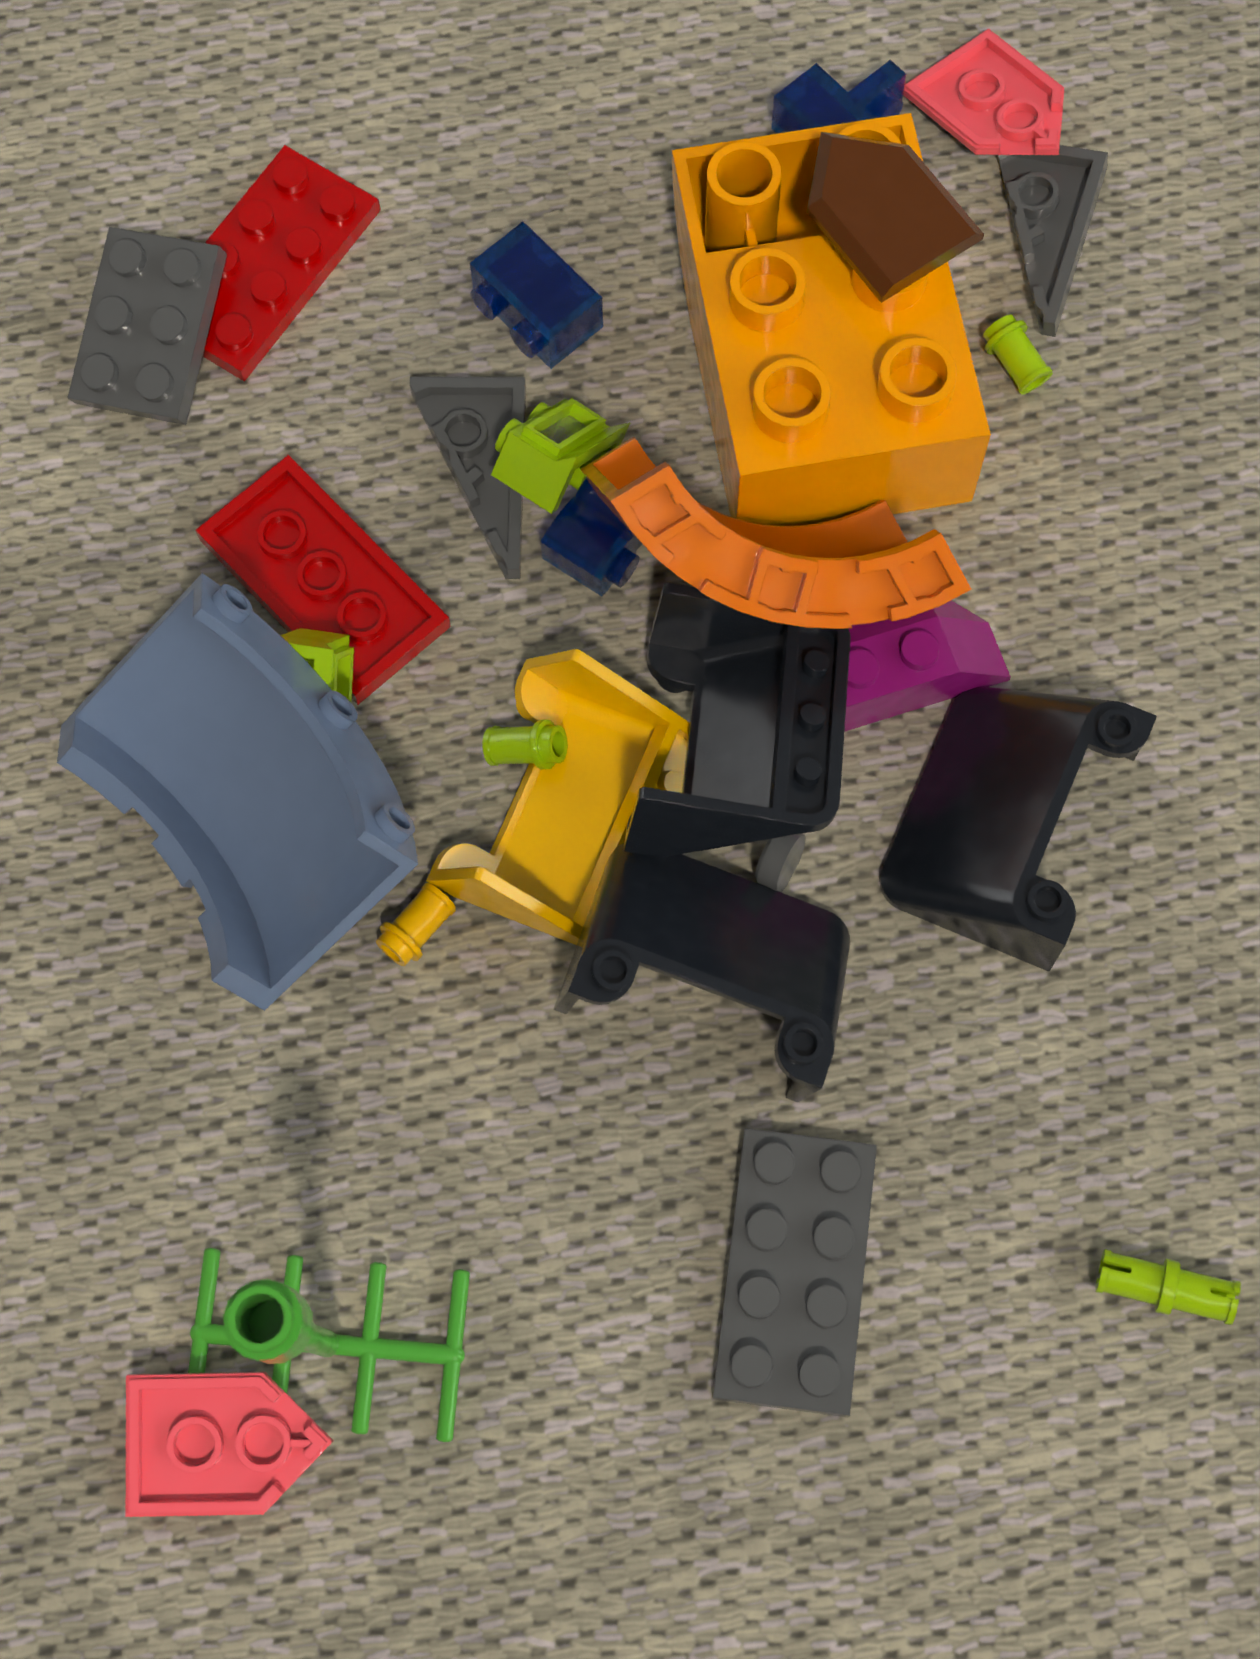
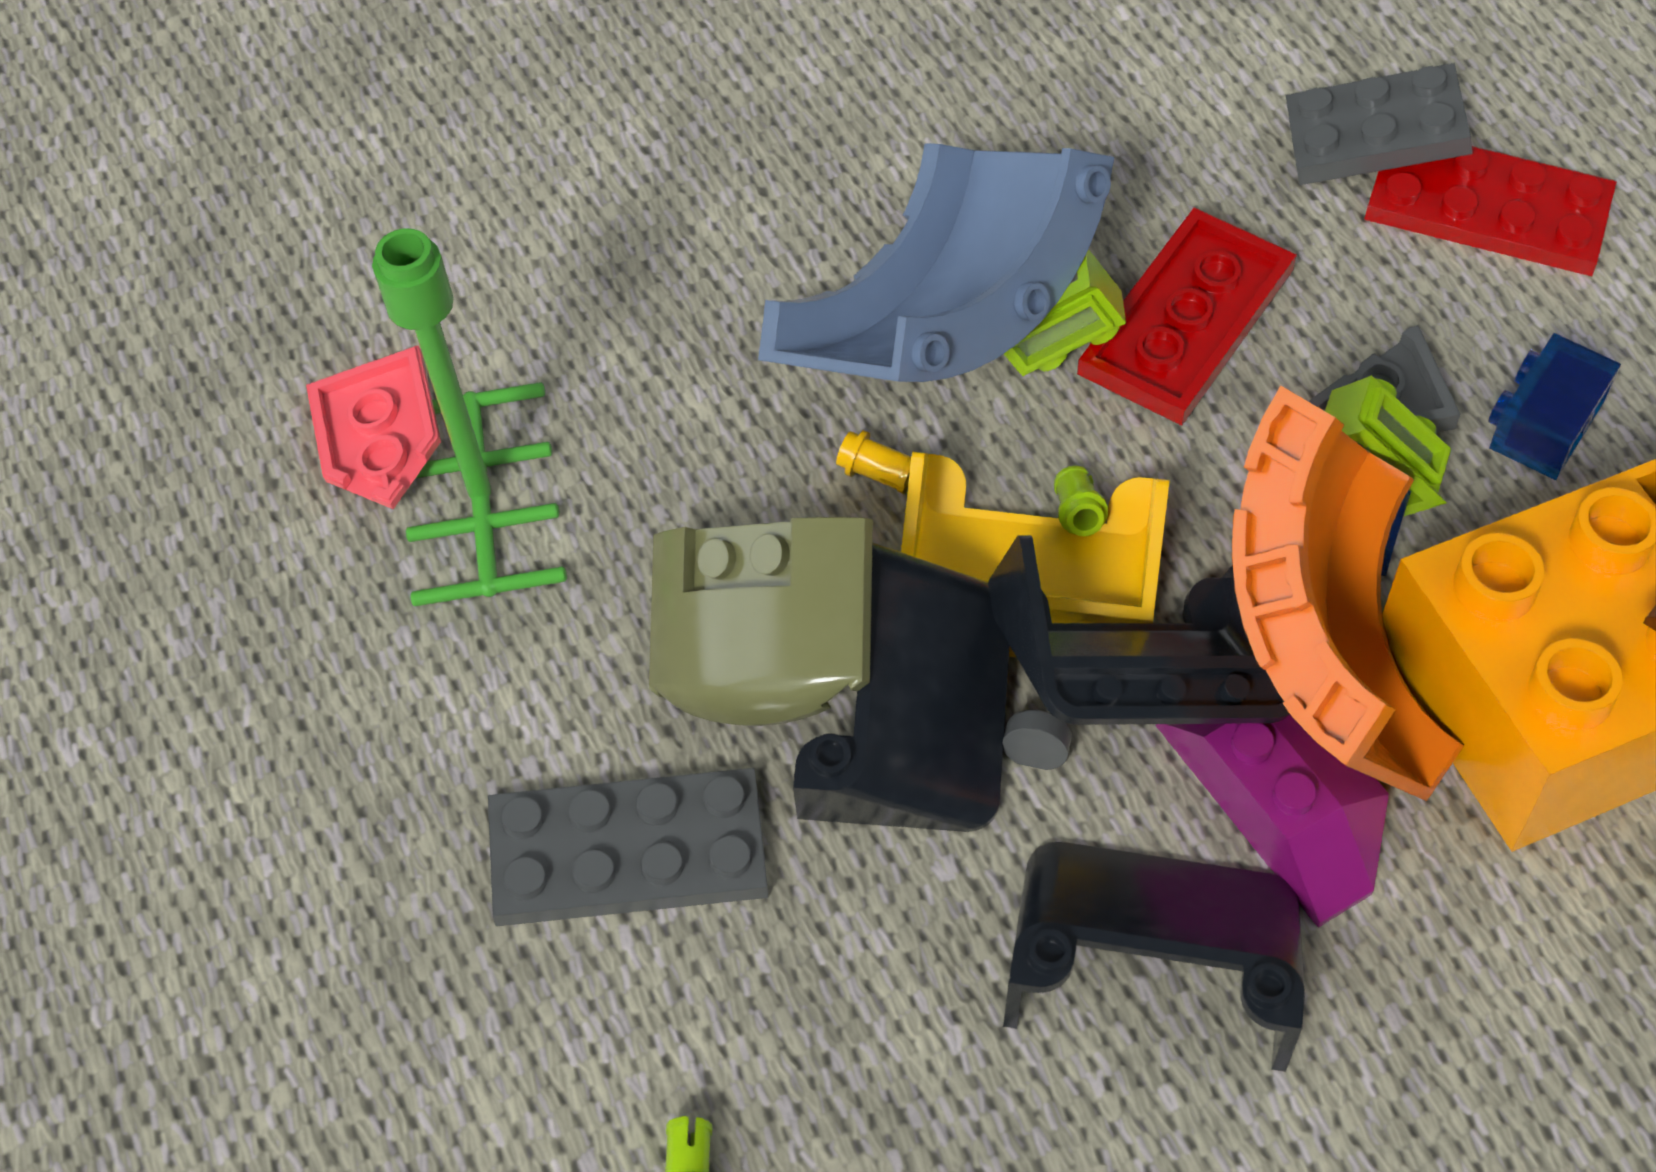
camera: 75 degrees right, 15 degrees down
(620, 1077) = (761, 618): none -> olive slope

